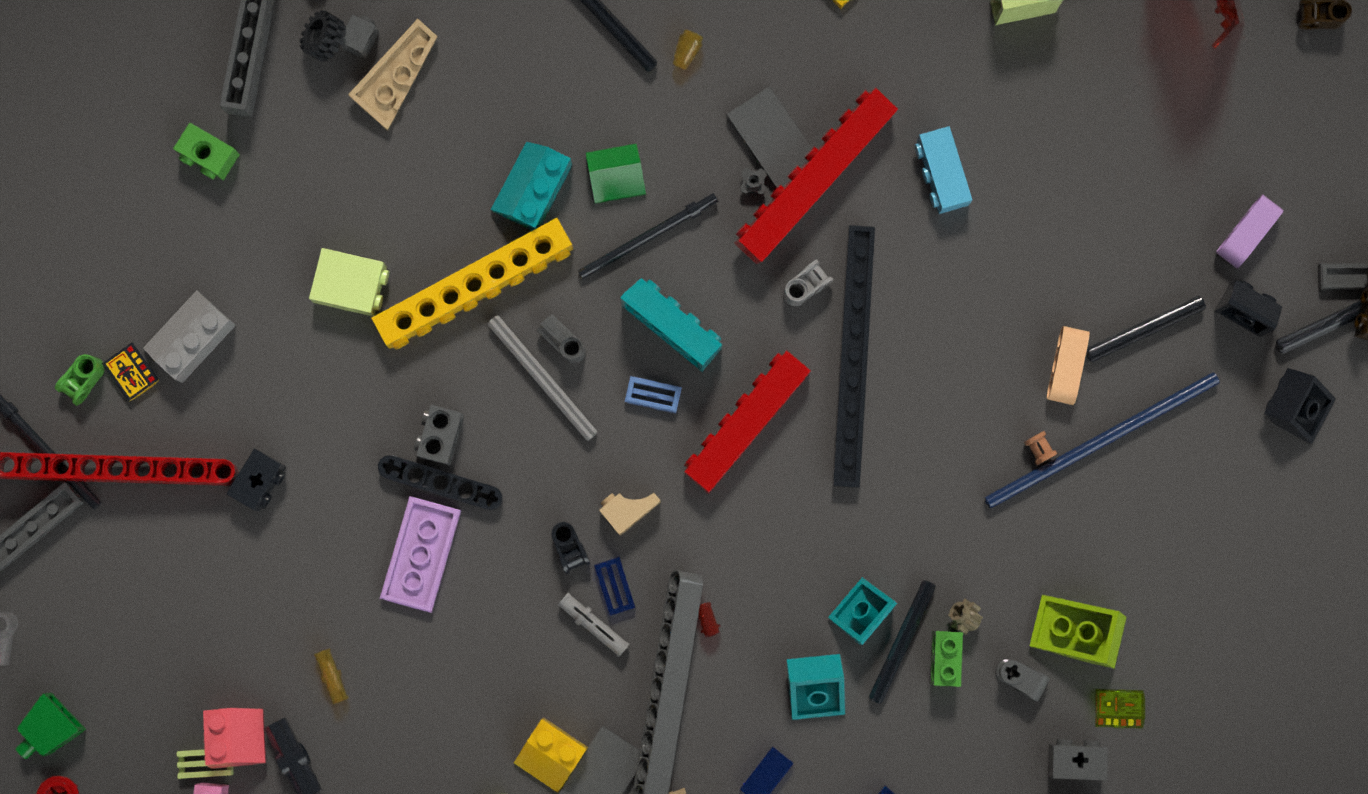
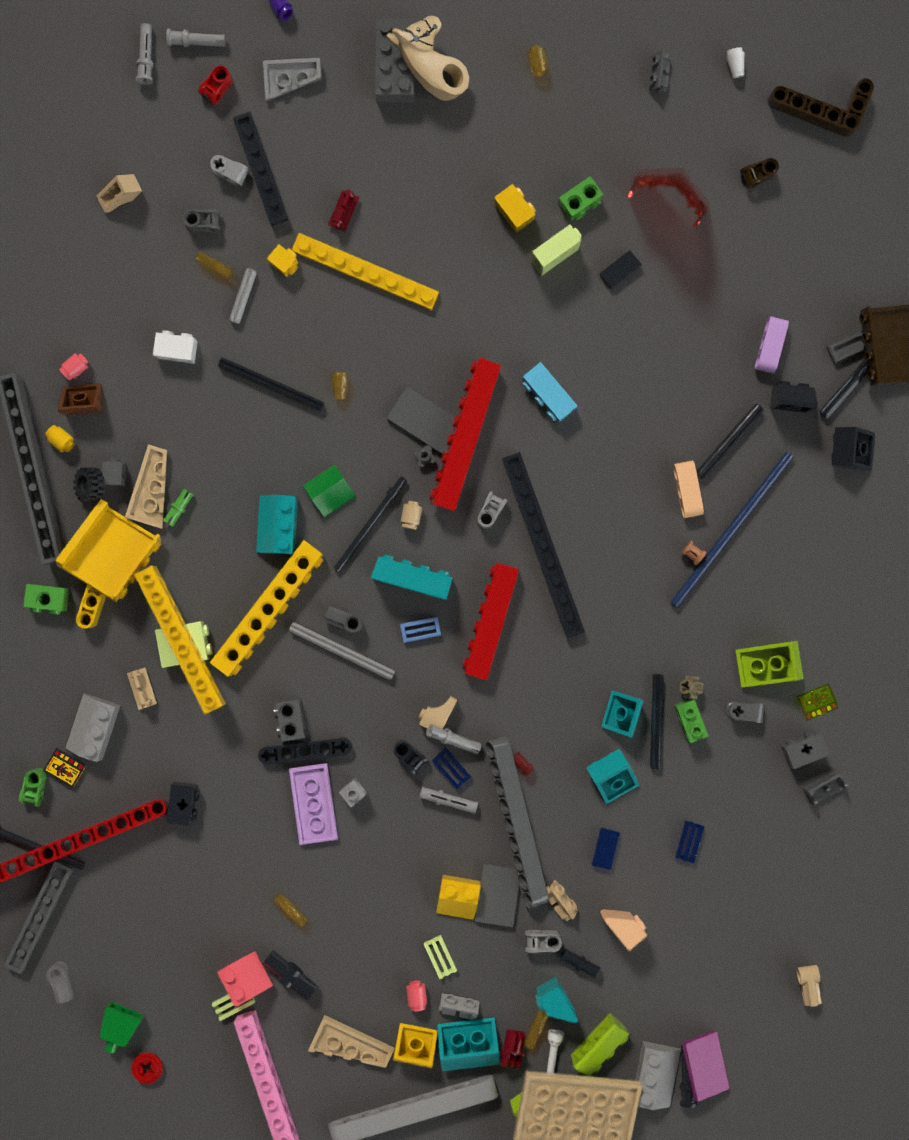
camera: 20 degrees left, 5 degrees up
(258, 194) = (87, 609): none -> yellow beam
(272, 315) = (142, 688): none -> tan hinge
(308, 127) = (108, 551): none -> yellow panel
(348, 271) = (180, 639): none -> yellow brick
(419, 112) = (178, 507): none -> bright green pin
(477, 560) = (353, 792): none -> light grey brick
(627, 540) = (449, 737): none -> light grey pin
(704, 246) = (411, 515): none -> tan brick
(1098, 58) = (620, 269): none -> black tile

